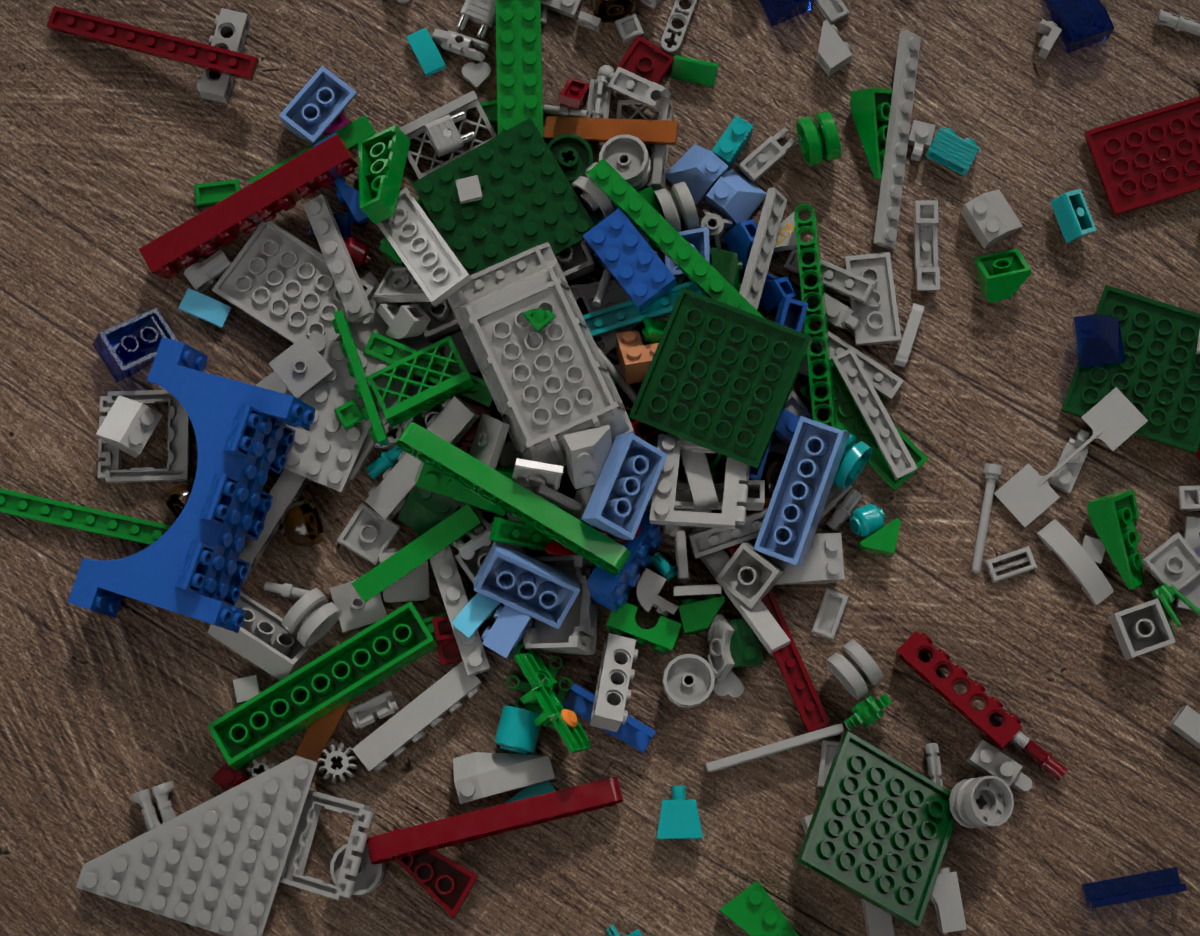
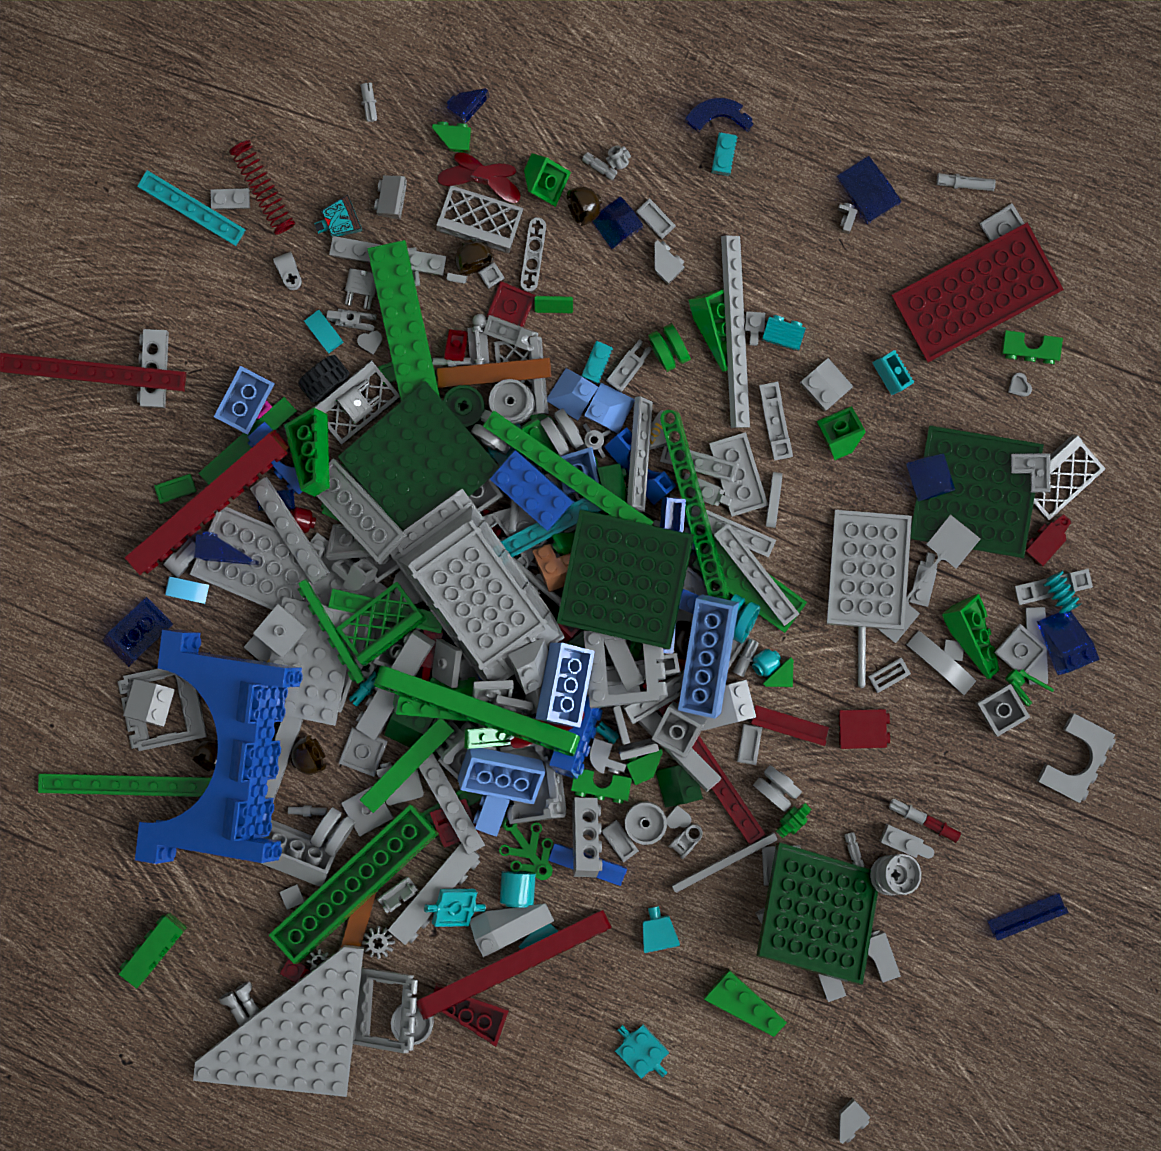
camera: 10 degrees left, 10 degrees up
(65, 718) = (152, 950): none -> green wedge
(248, 263) = (212, 548): none -> clear blue slope
(350, 414) = (328, 662): green tile -> none
(413, 97) = (323, 378): none -> black tyre
(438, 737) = (454, 907): none -> teal plate
(469, 189) = (387, 454): light grey tile -> none
(474, 614) = (463, 807): medium azure slope -> none
(539, 318) = (469, 564): green tile -> none
(553, 712) = (539, 865): green piece -> none
(653, 699) = (620, 841): none -> light grey tile
(719, 647) = (664, 782): light grey tile -> none
(732, 713) = (686, 841): none -> light grey piece
(882, 601) = (790, 725): none -> dark red fence
(970, 620) = (863, 728): none -> dark red panel
(999, 736) = (826, 755): dark red brick -> none
(1008, 435) = (869, 570): none -> light grey plate

